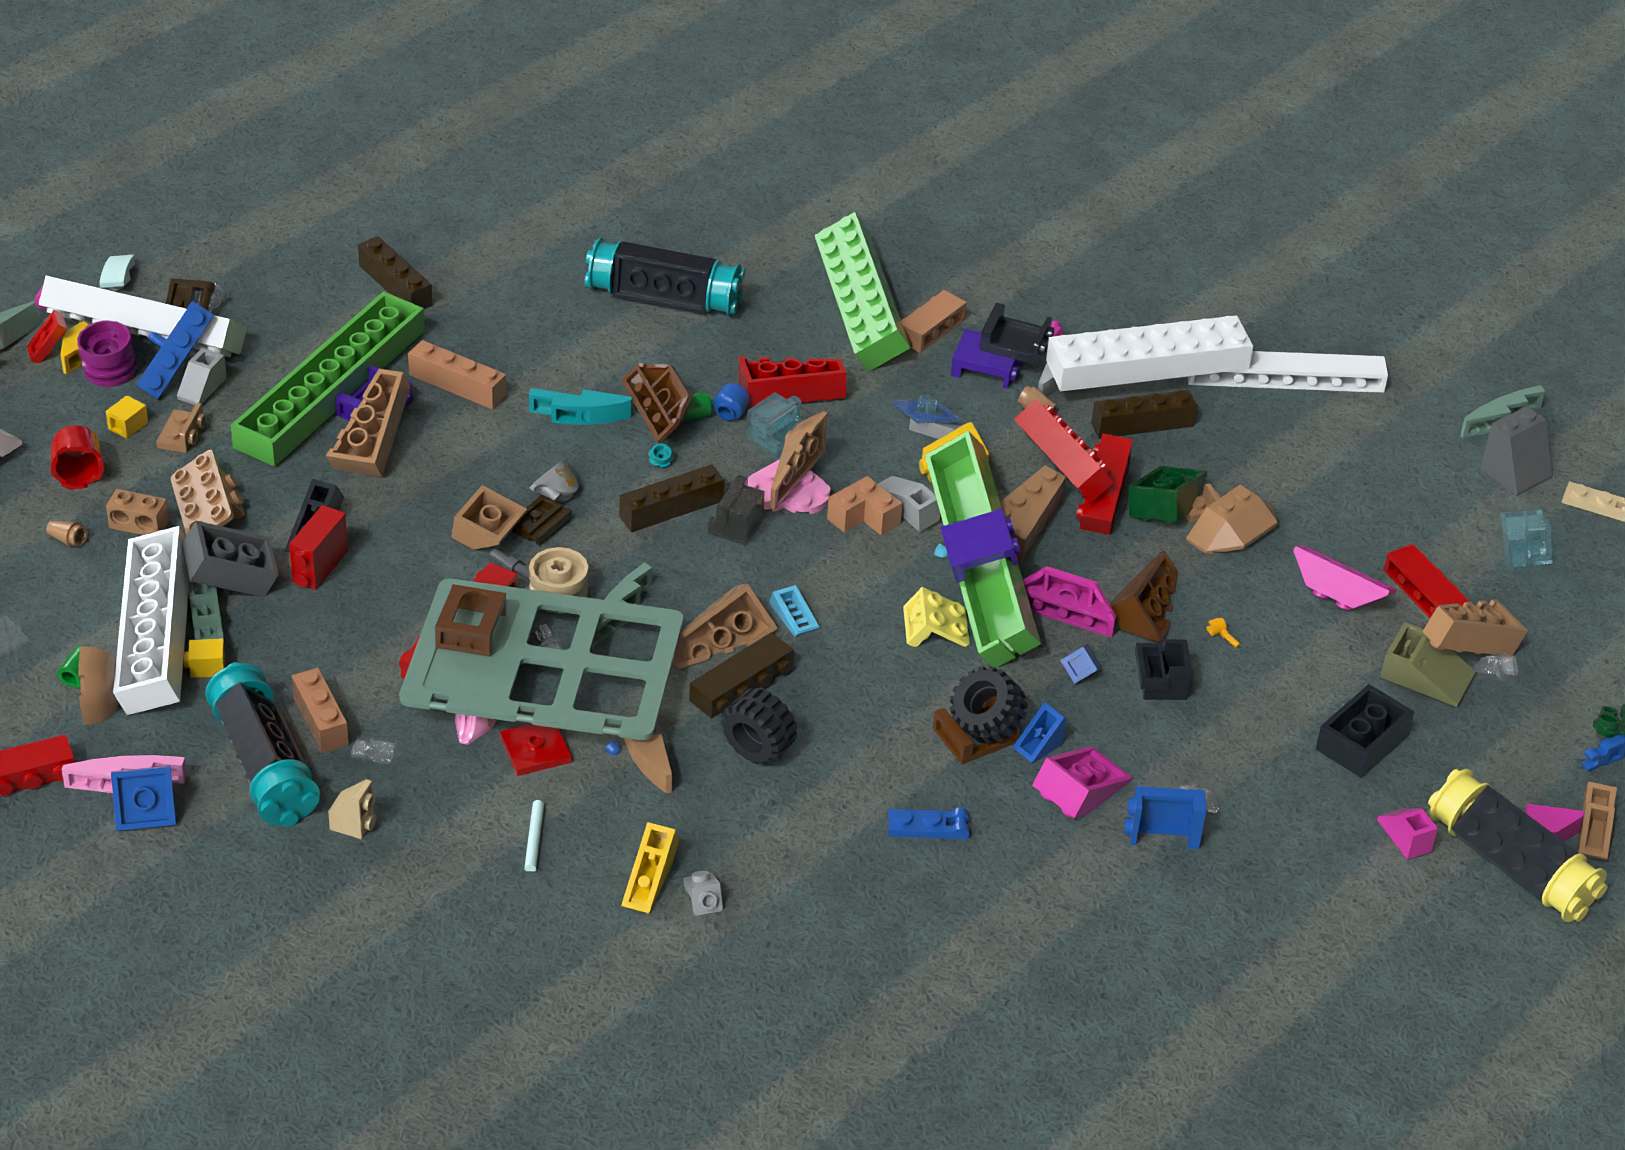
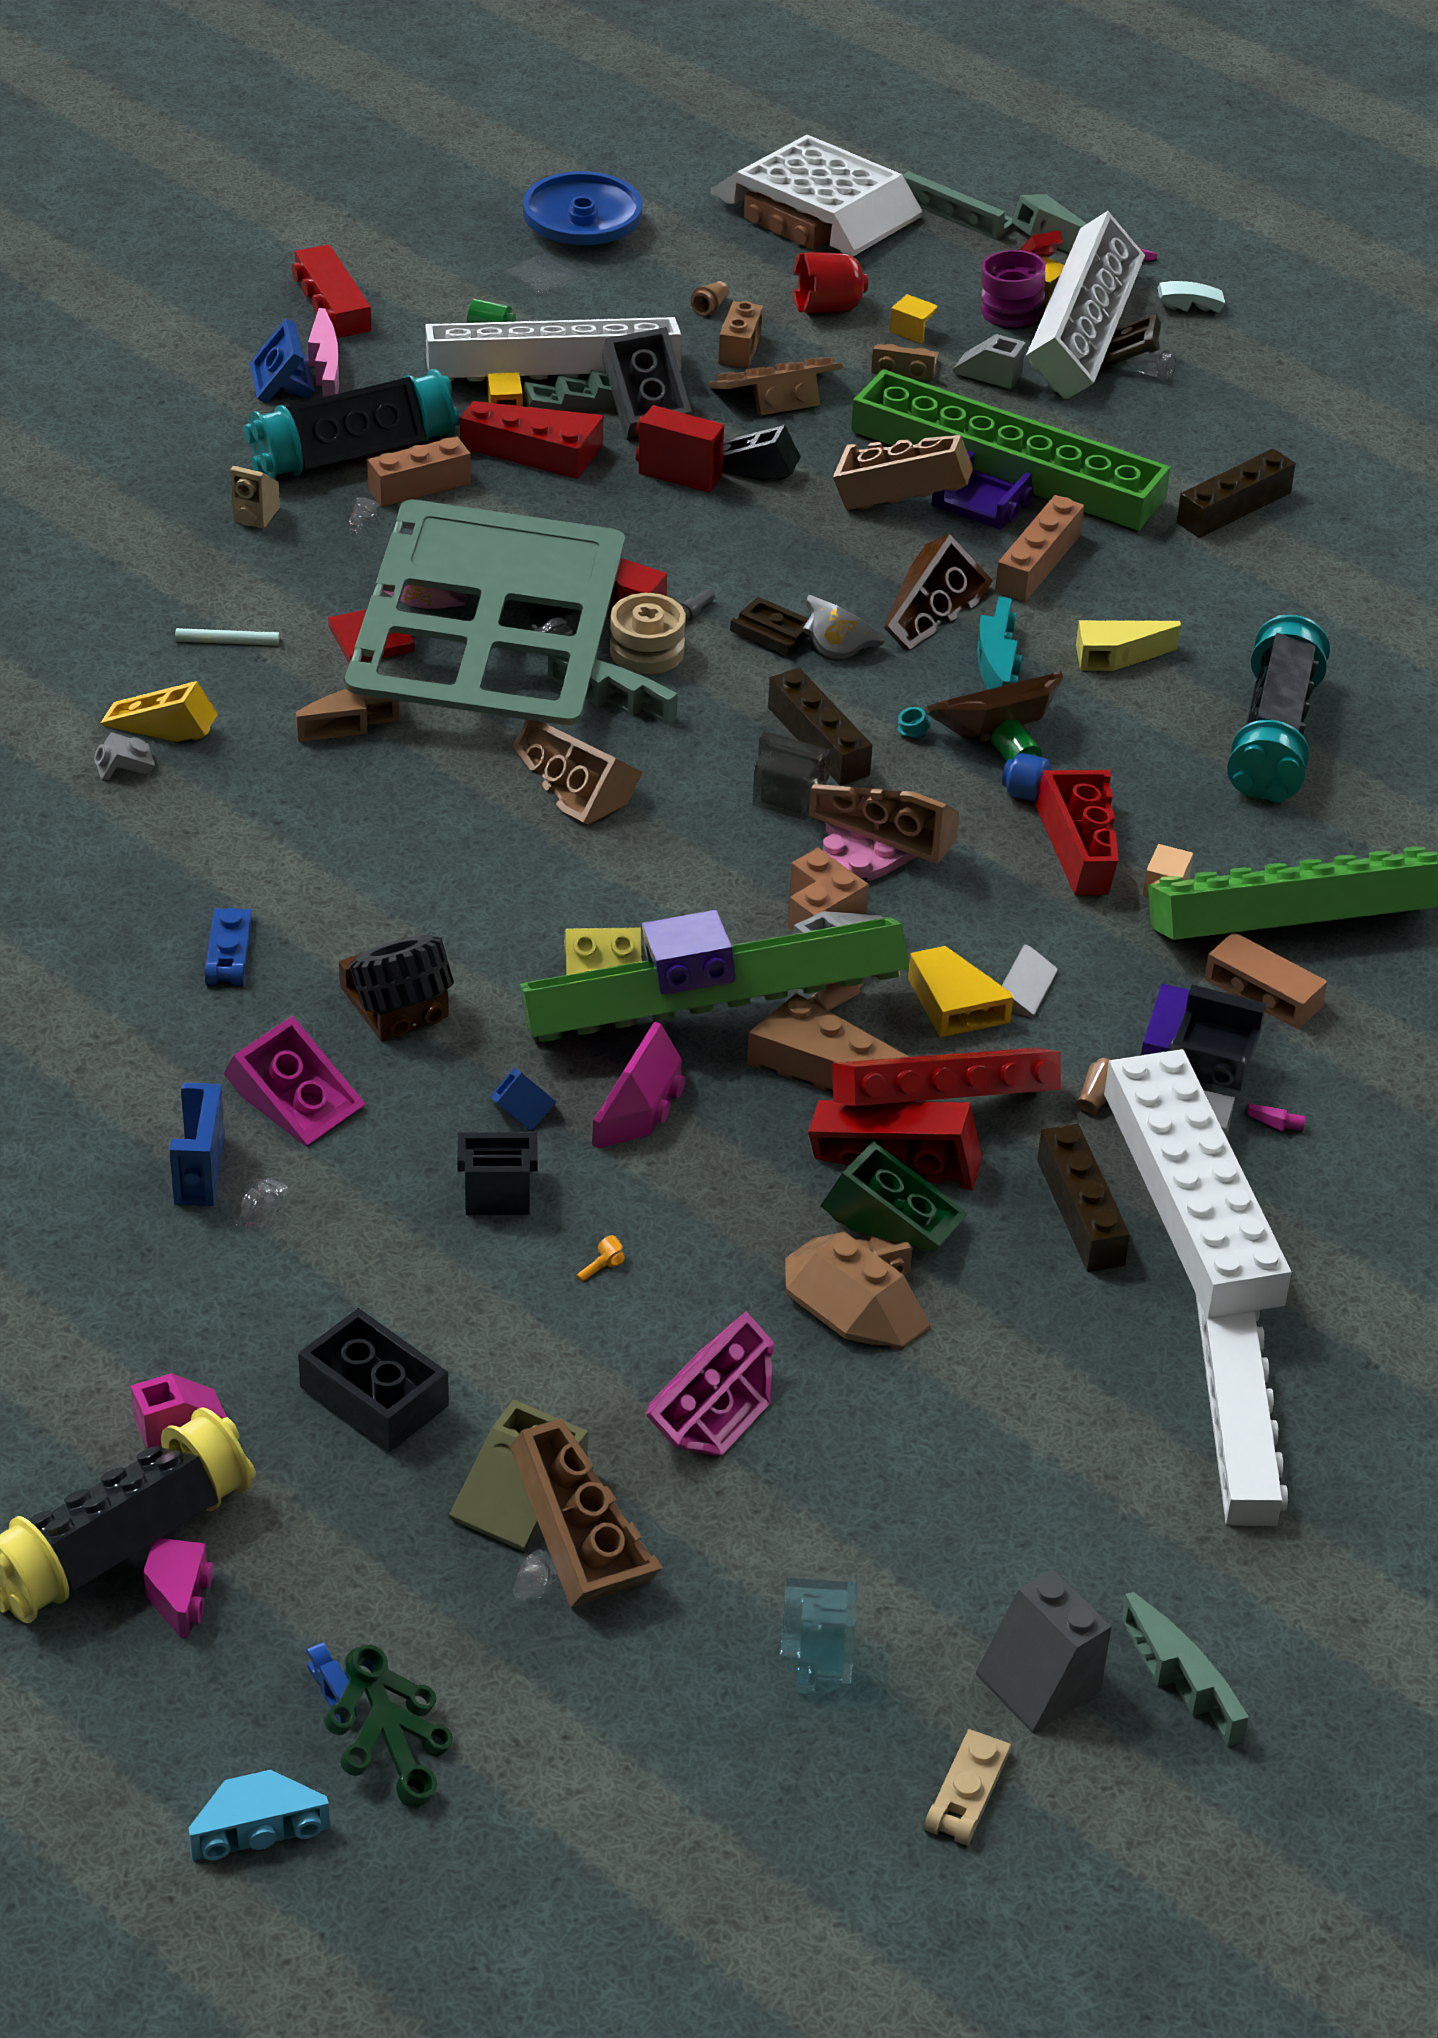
camera: 90 degrees right, 0 degrees up
(96, 684) = (444, 306): medium nougat brick -> none
(174, 349) = (1020, 319): blue plate -> none
(280, 633) = (533, 436): none -> red wedge
(468, 637) = (559, 548): reddish brown panel -> none
(486, 519) = (752, 568): medium nougat slope -> none
(491, 426) = (934, 590): none -> reddish brown wedge
(573, 348) = (1123, 643): none -> light yellow slope
(747, 669) = (488, 786): dark brown brick -> none
(759, 726) = (369, 779): black tyre -> none
(771, 421) = (986, 809): clear light blue plate -> none
(792, 594) = (623, 825): medium azure slope -> none
(830, 347) = (1167, 862): none -> light nougat brick
(926, 410) = (1048, 965): clear light blue piece -> none
(1042, 734) = (379, 1052): blue slope -> none
(1144, 601) = (653, 1173): reddish brown wedge -> none
(1421, 580) = (710, 1503): red brick -> none
(1597, 820) = (187, 1648): medium nougat slope -> none

